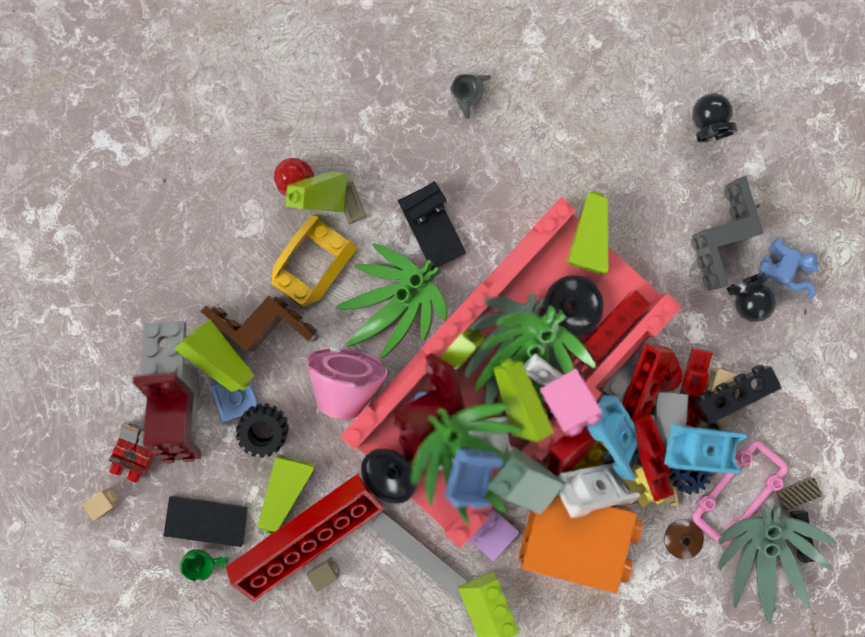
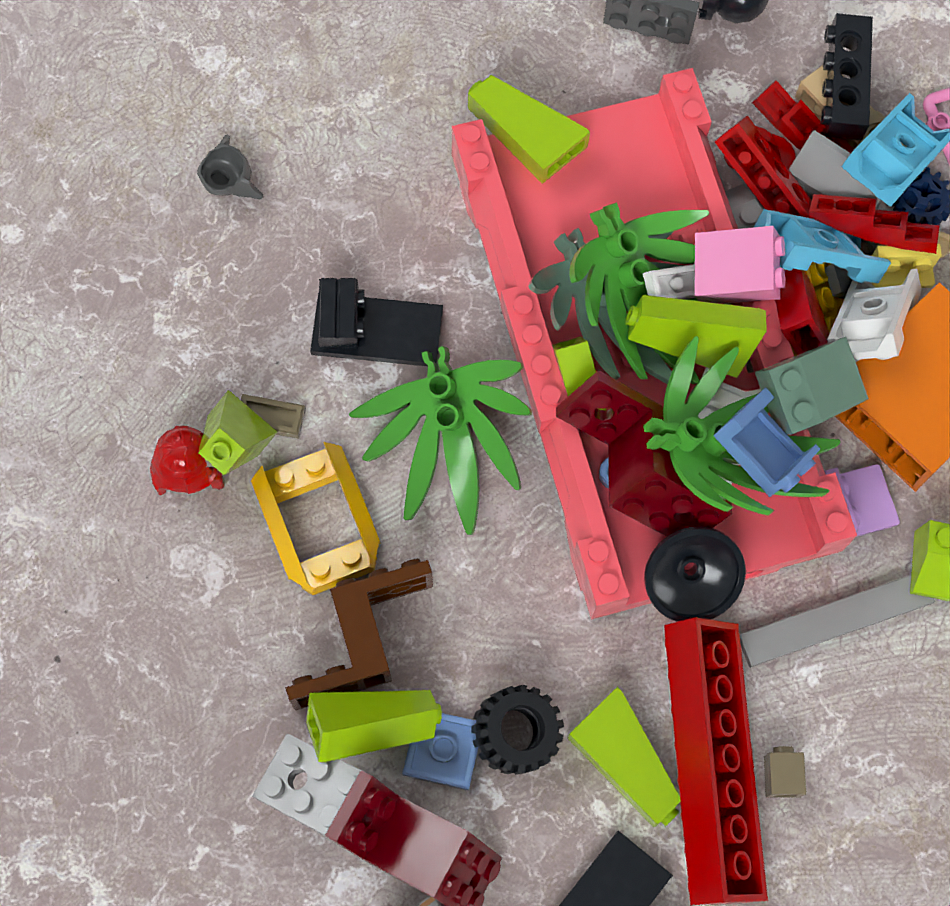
camera: 60 degrees left, 15 degrees down
(344, 381) = (522, 564): bright pink cone -> none
(585, 301) = (601, 182): black dish -> none
(615, 324) = (663, 160): red brick -> none

